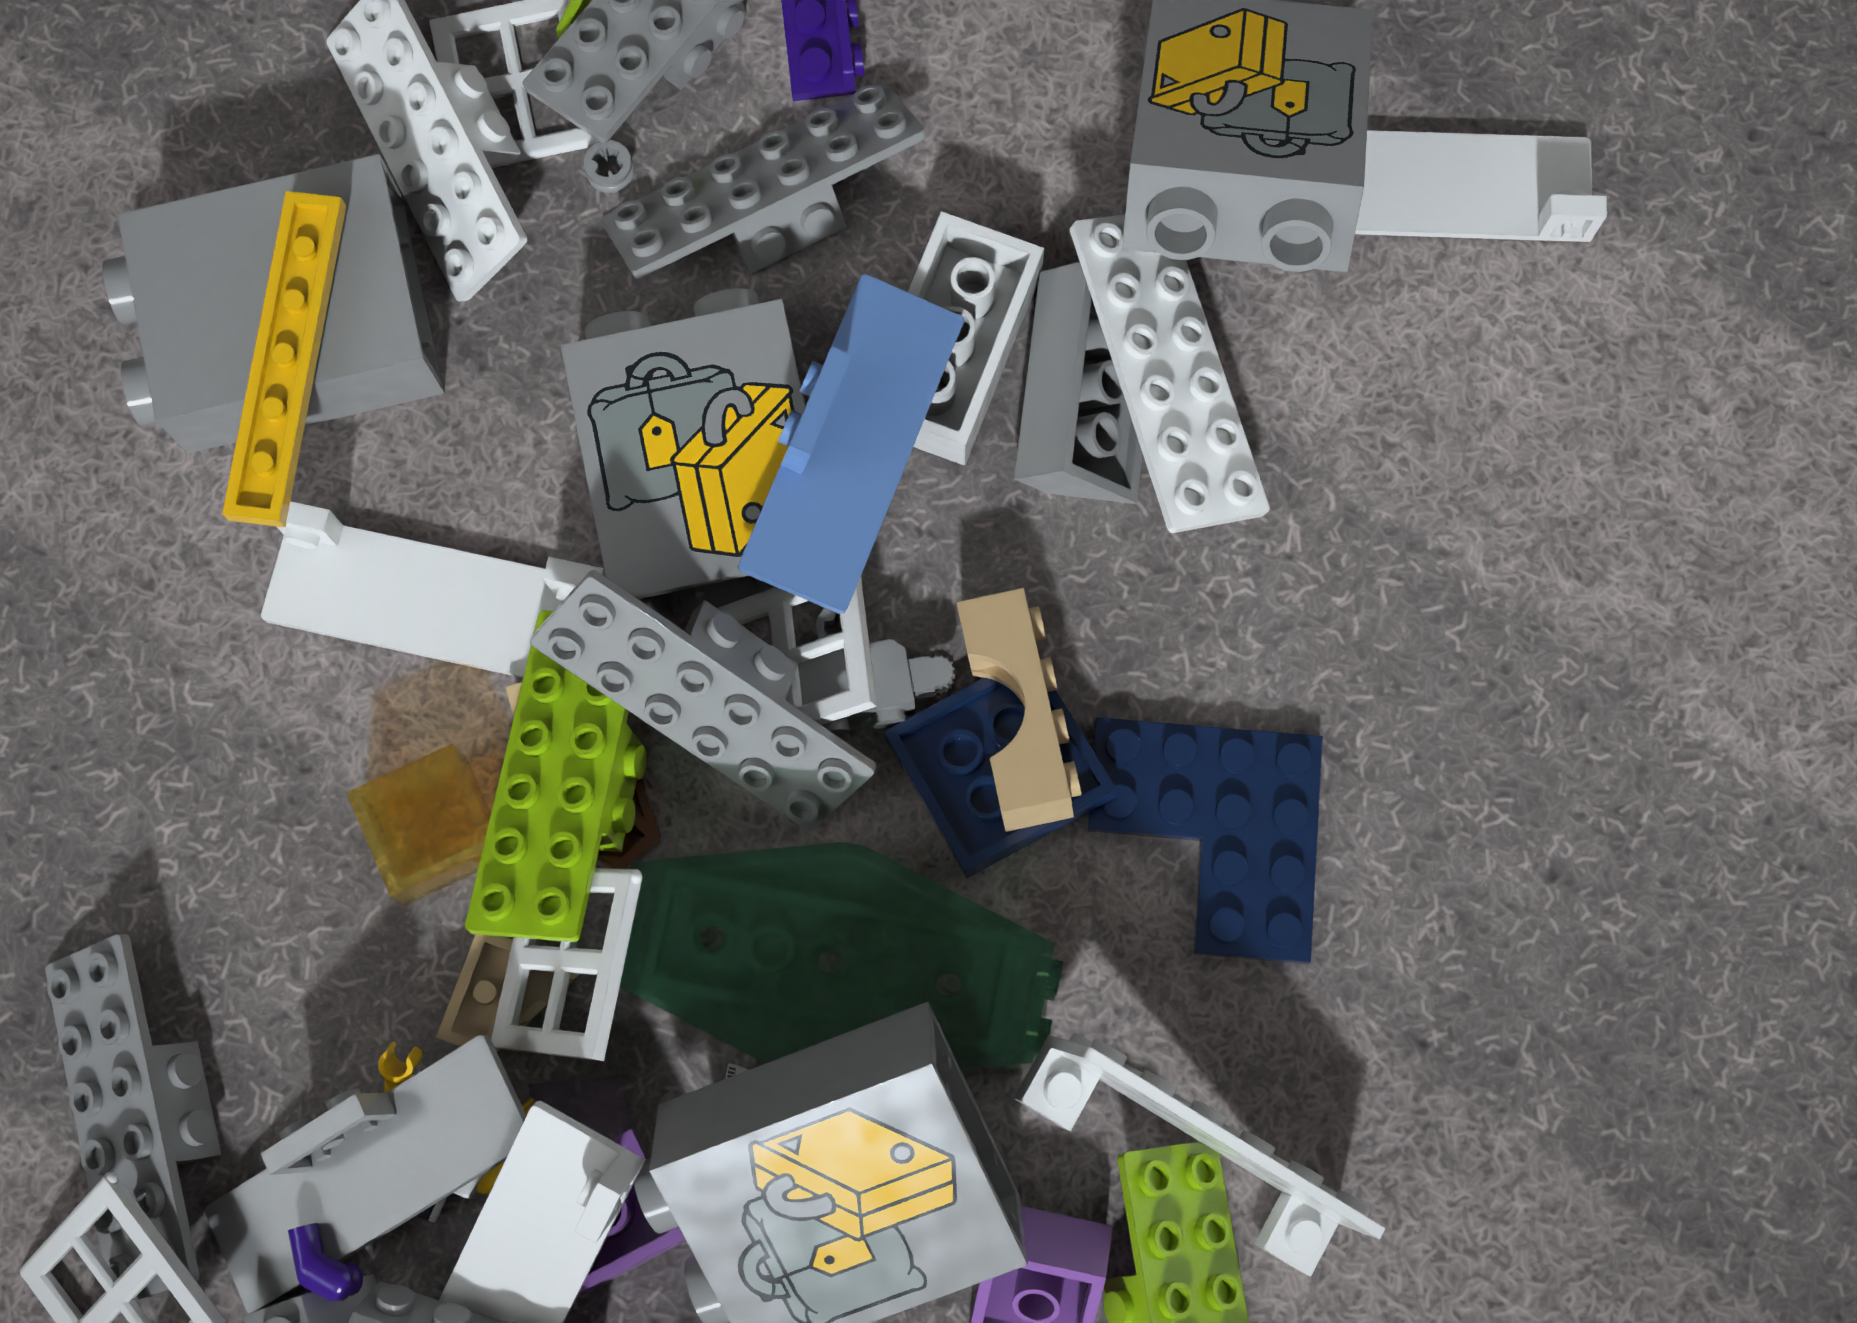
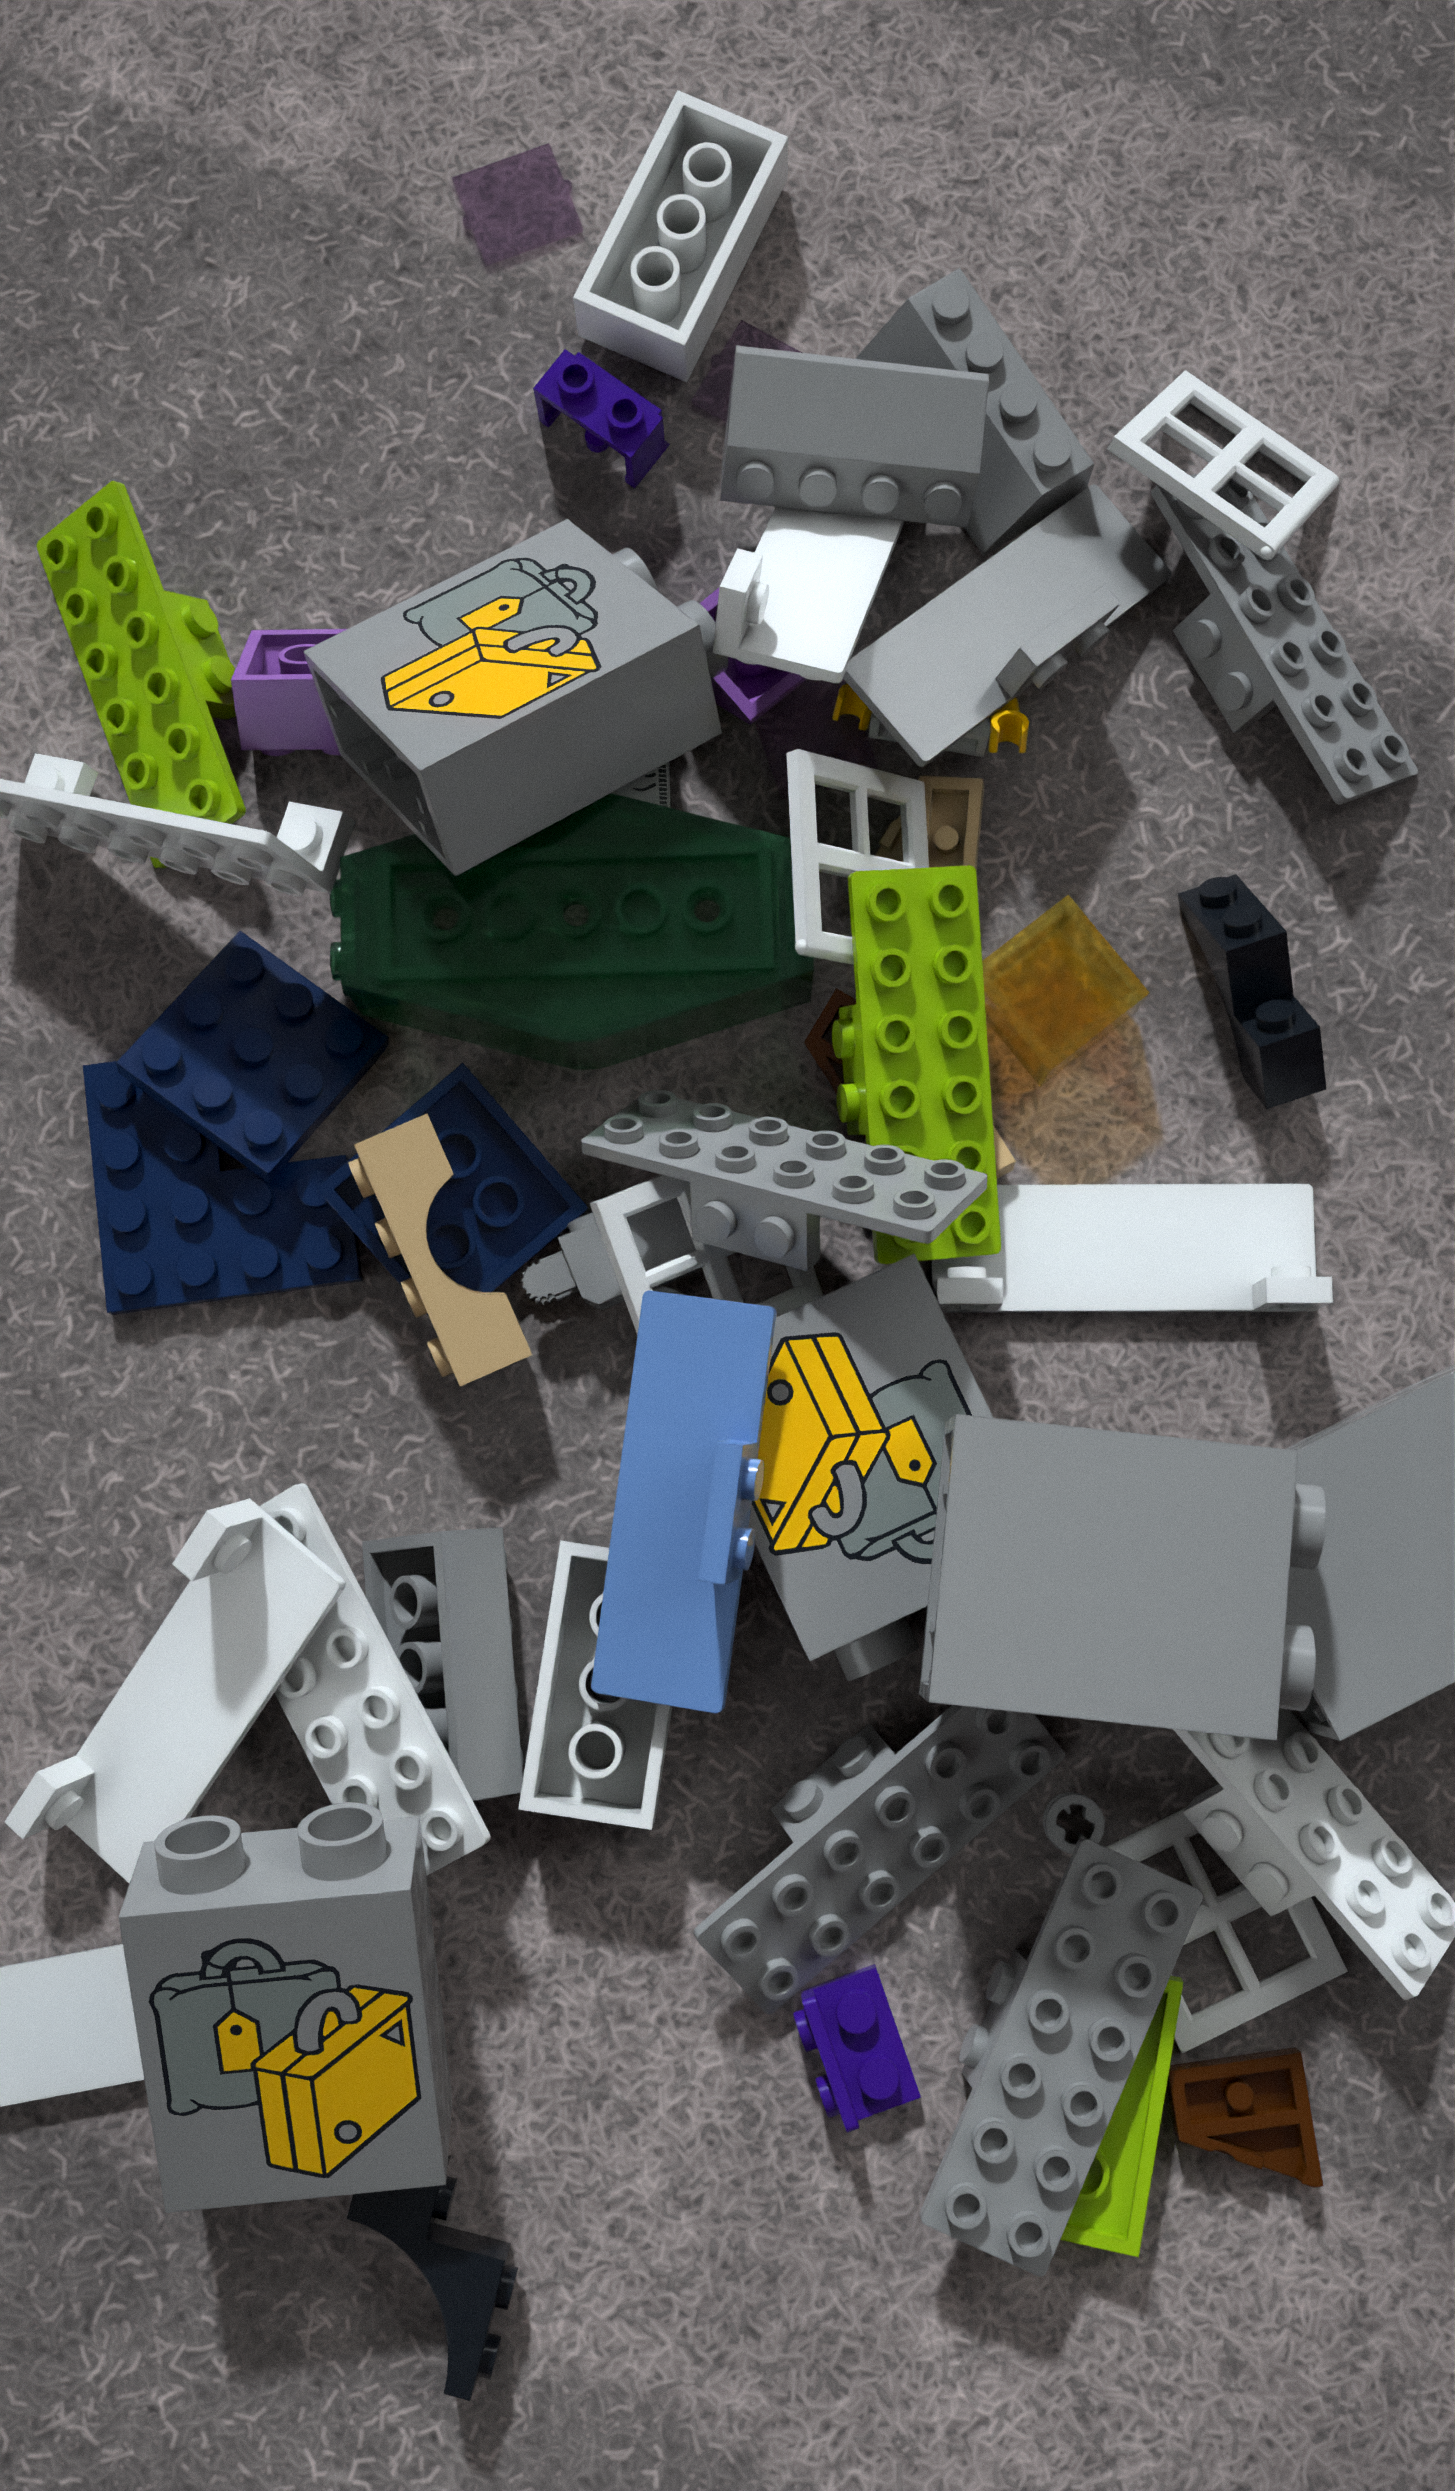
camera: 170 degrees right, 5 degrees up
(250, 803) = (1251, 965): none -> black arch
(284, 359) = (1368, 1452): yellow plate -> none
(318, 1271) = (1031, 520): dark purple arm -> none
(518, 291) = (1119, 1577): none -> light grey brick
(1153, 932) = (253, 1056): none -> dark blue plate
(1294, 392) = (192, 1691): none -> white bracket

